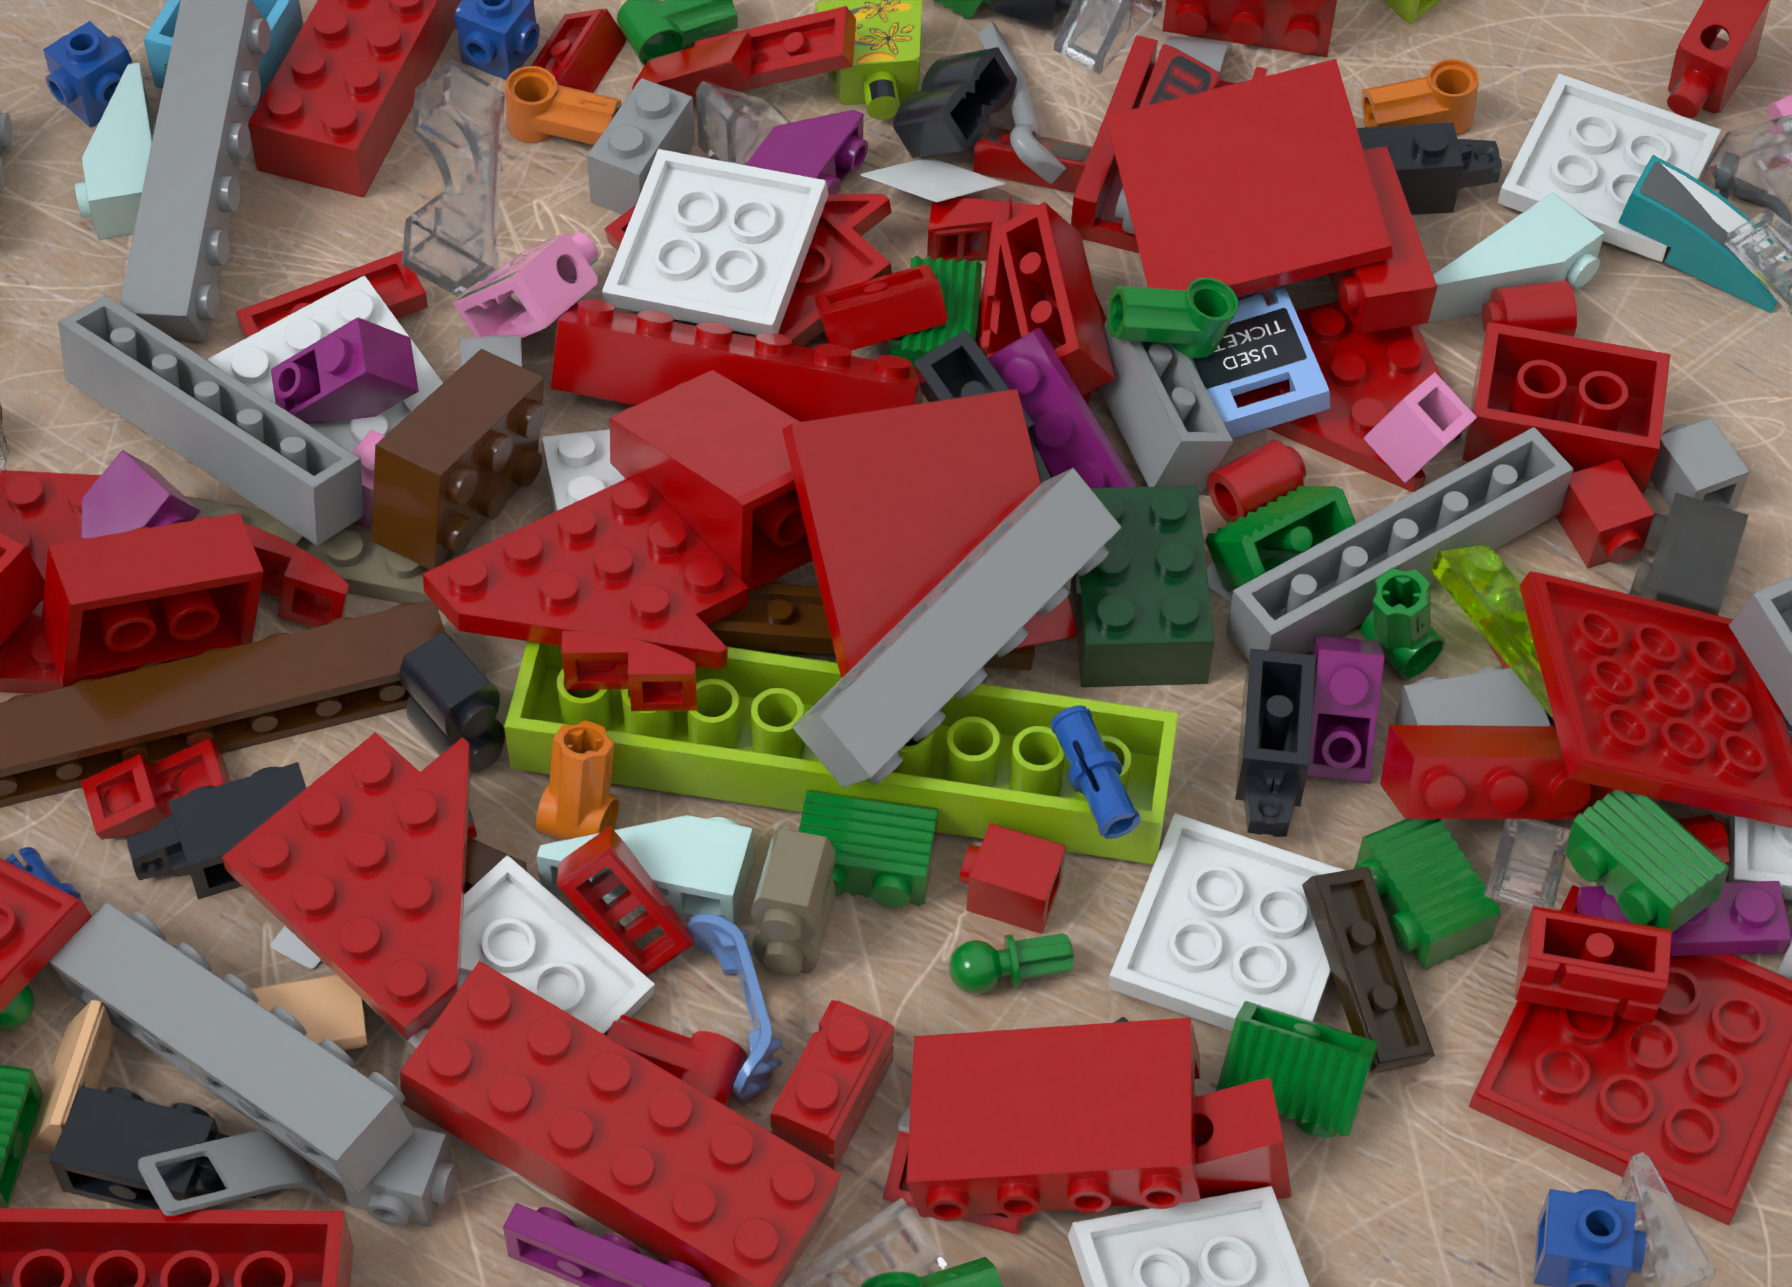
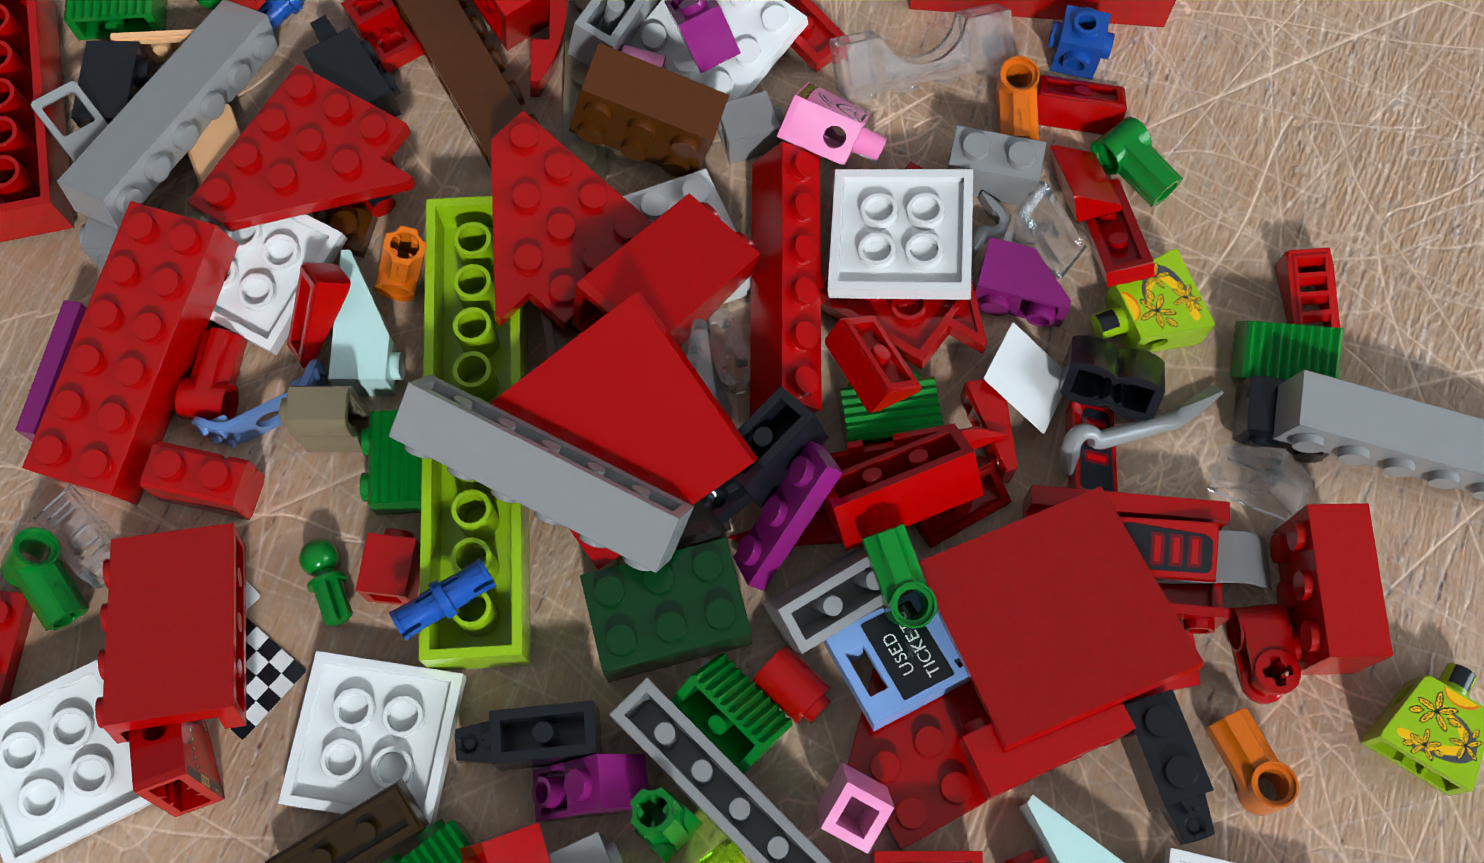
camera: 80 degrees right, 15 degrees up
(452, 700) = (451, 163): black brick -> none
(653, 674) = (466, 265): red slope -> none
(1292, 47) = (1263, 642): none -> red piece
(1312, 1067) = (248, 800): green brick -> none

